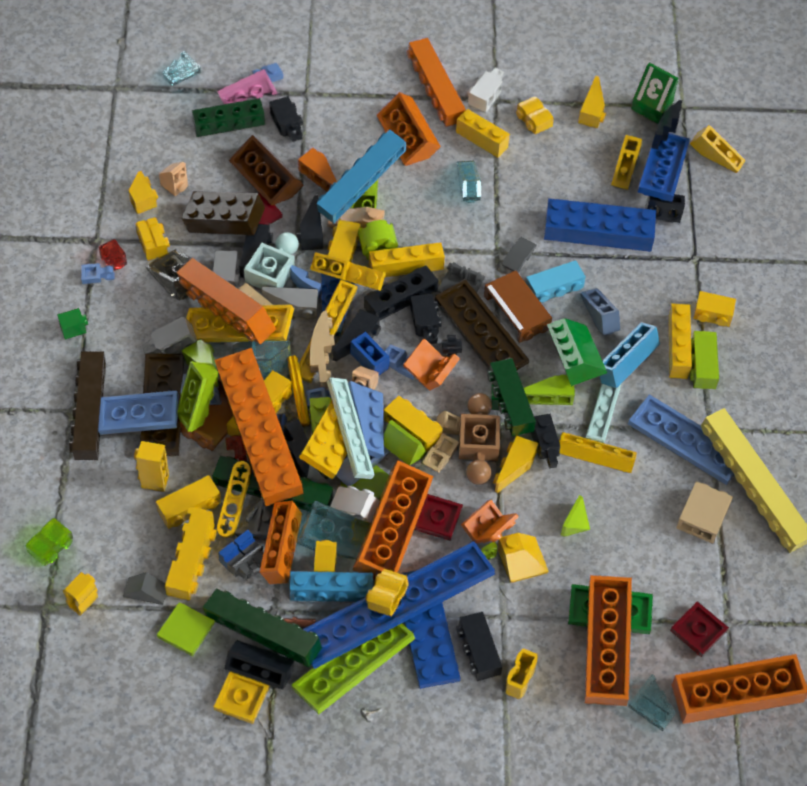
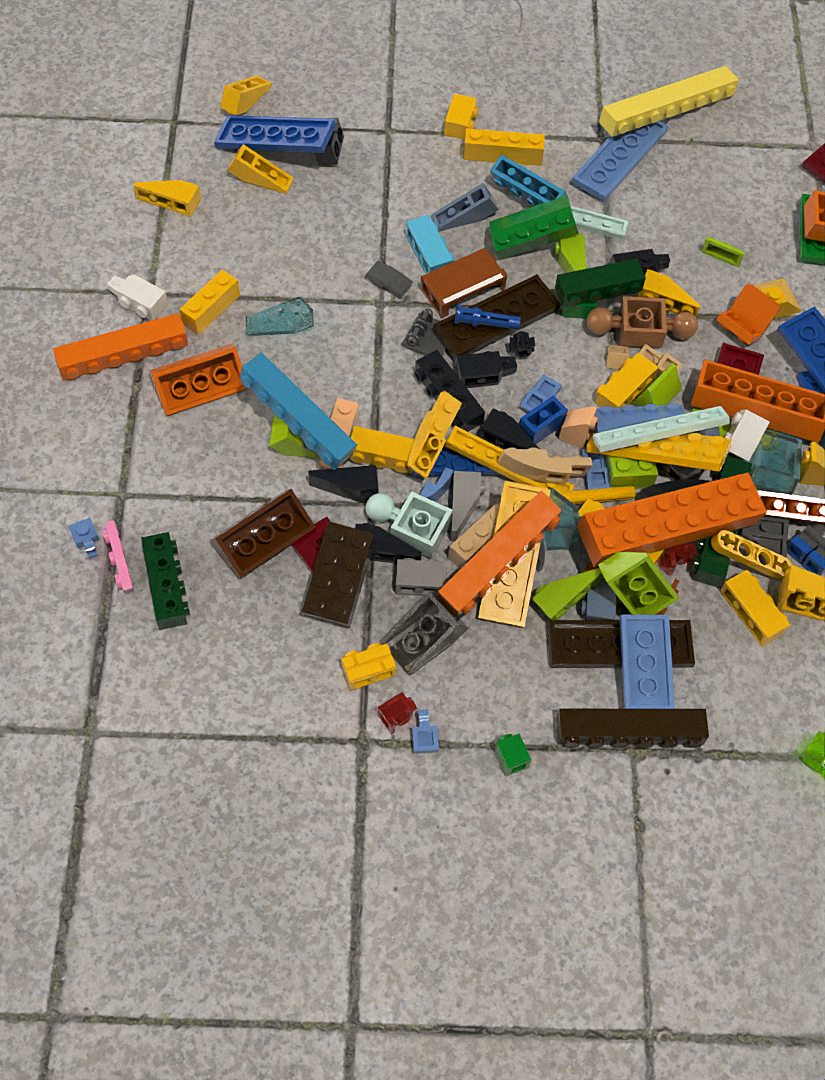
camera: 90 degrees left, 5 degrees up
(141, 194) = (292, 683): yellow slope -> none
(152, 466) = (731, 636): yellow brick -> none
(171, 338) = (531, 634): light grey hinge -> none
(174, 178) = (270, 639): light nougat slope -> none
(181, 70) = (68, 643): clear light blue wing -> none
(286, 118) = (172, 511): black hinge -> none
(316, 168) = (260, 474): orange slope -> none
(377, 236) = (377, 408): lime brick -> none
(407, 259) = (403, 384): yellow brick -> none
(429, 365) = (554, 360): orange bracket -> none
(471, 306) = (476, 317): none -> blue pin
(490, 550) = (772, 328): lime tile -> none
(534, 115) = (183, 251): yellow brick -> none
(597, 452) = (640, 224): yellow slope -> none
(600, 225) = (350, 202): blue brick -> none
(654, 93) = (172, 130): green slope -> none
(667, 124) = (212, 127): black slope -> none
(704, 360) = (528, 124): lime brick -> none
(704, 512) = (703, 147): tan brick -> none

